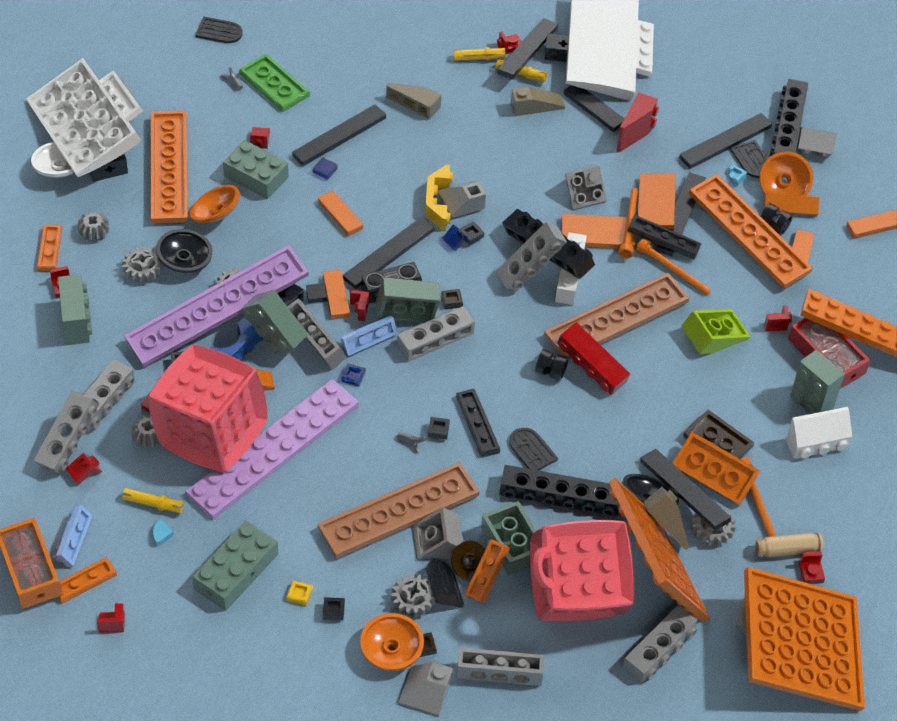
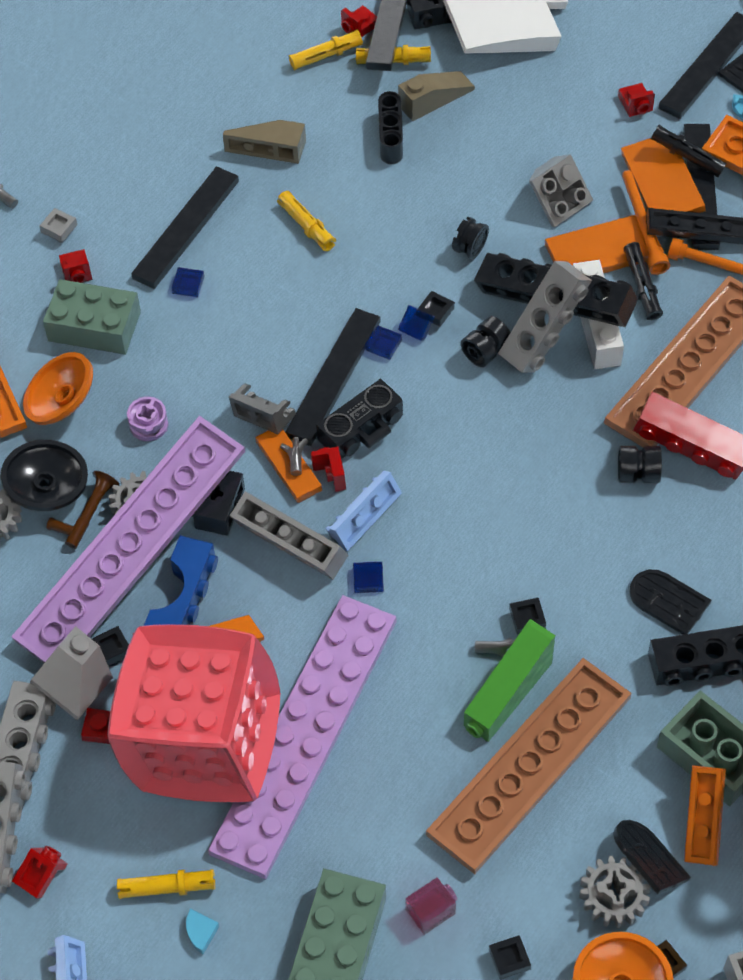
camera: 15 degrees left, 5 degrees up
(144, 432) = (99, 778): light grey gear -> none
(148, 365) = (74, 673): none -> light grey slope
(189, 291) = (76, 532): none -> reddish brown piece
(260, 108) = (58, 225): none -> light grey plate
(262, 239) = (146, 418): none -> lavender wheel
(274, 82) = (60, 180): bright green tile -> none
(274, 321) = (228, 540): sand green brick -> none
(299, 593) = (447, 950): yellow tile -> none
(301, 564) = (431, 905): none -> clear pink brick
(316, 293) = (259, 471): black tile -> none
(332, 257) = (261, 411): none -> dark grey hinge
(340, 213) = (239, 340): orange tile -> none
(341, 288) = (295, 455): none -> flat silver bar
(408, 300) = (401, 439): sand green brick -> none
(408, 459) = (510, 681): none -> bright green slope
(418, 159) = (312, 227): none -> yellow pin
(429, 243) = (383, 342): none -> clear blue tile
(434, 212) = (376, 296): yellow slope -> none
(435, 333) = (435, 507): light grey brick -> none
(437, 535) = (605, 783): light grey slope -> none
(452, 299) = (453, 414): dark brown tile -> none
(463, 198) = (401, 261): light grey slope -> none
(470, 550) = (674, 795): dark brown dish -> none
(478, 423) = (576, 587): black tile -> none
(489, 263) = (485, 342): none -> black wheel
(496, 115) = (390, 127): none -> black beam
(513, 197) = (470, 237): none -> black wheel
(594, 107) = (514, 74): black tile -> none
(610, 265) = (651, 307): none -> black pin
(638, 121) = (587, 72): red slope -> none
(666, 147) = (636, 99): none -> red bracket
(675, 183) = (682, 147): none -> black pin

